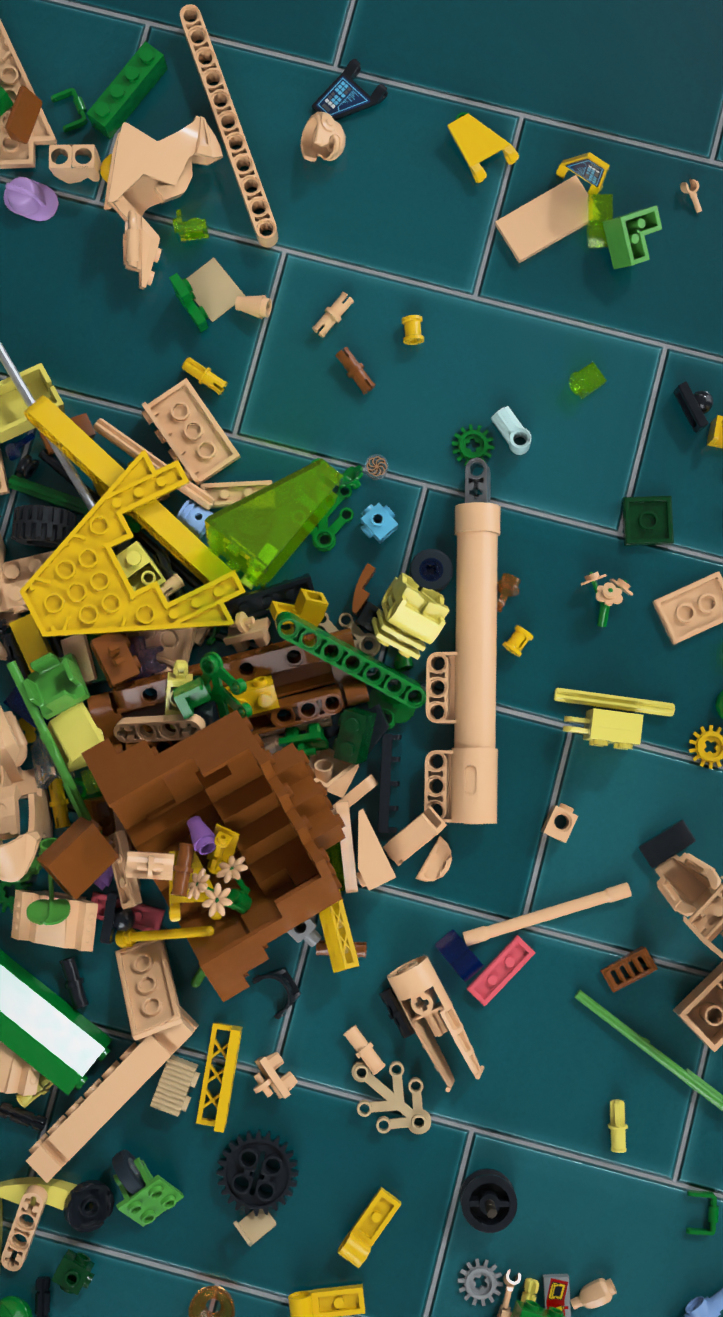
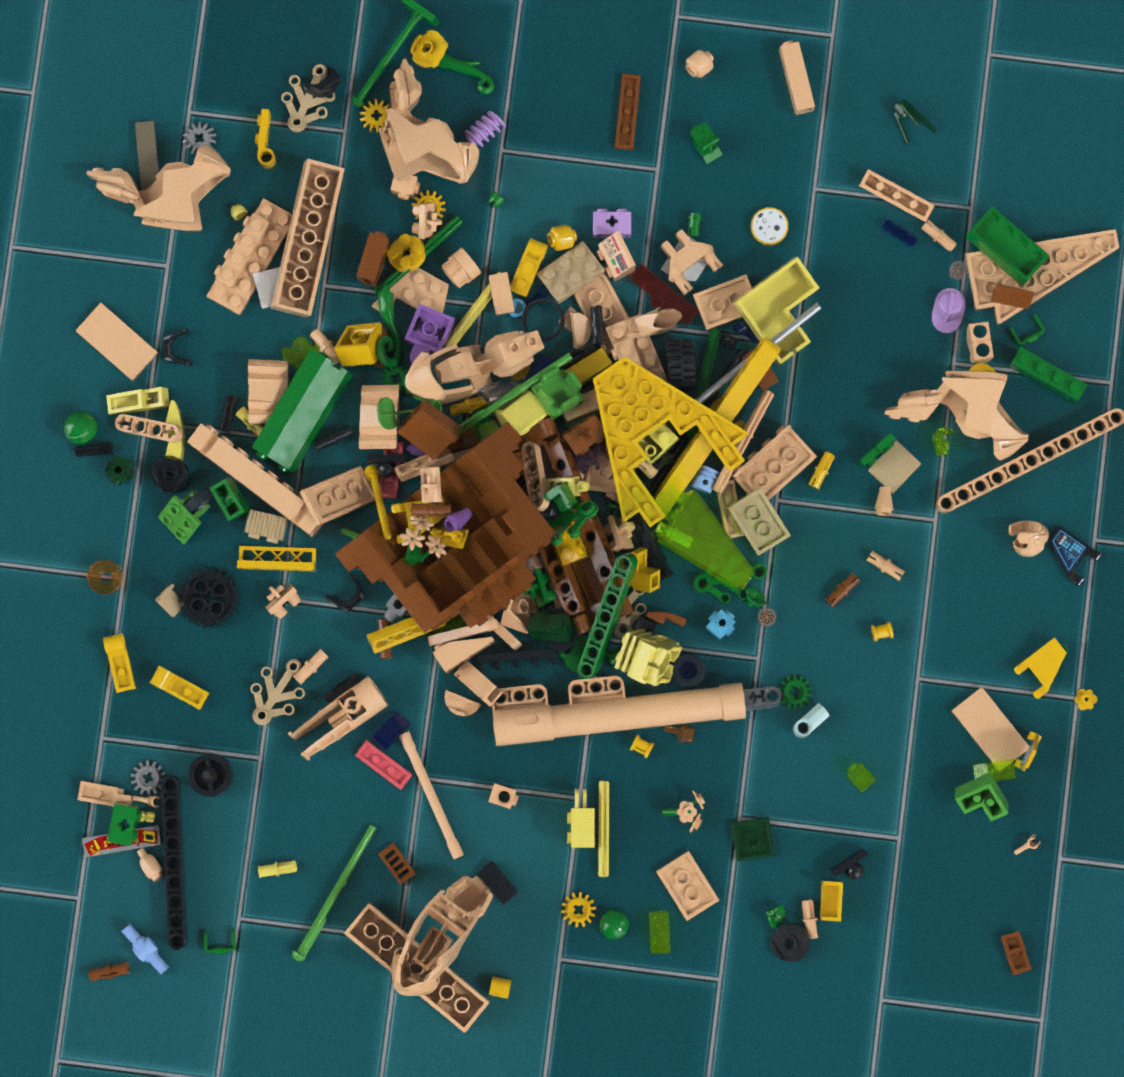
camera: 80 degrees right, 0 degrees up
(132, 1130) = (230, 499): none -> green brick
(256, 458) = (759, 521): none -> tan plate
(525, 109) = (1080, 699): none -> yellow plant
(606, 1268) = (178, 872): none -> black beam

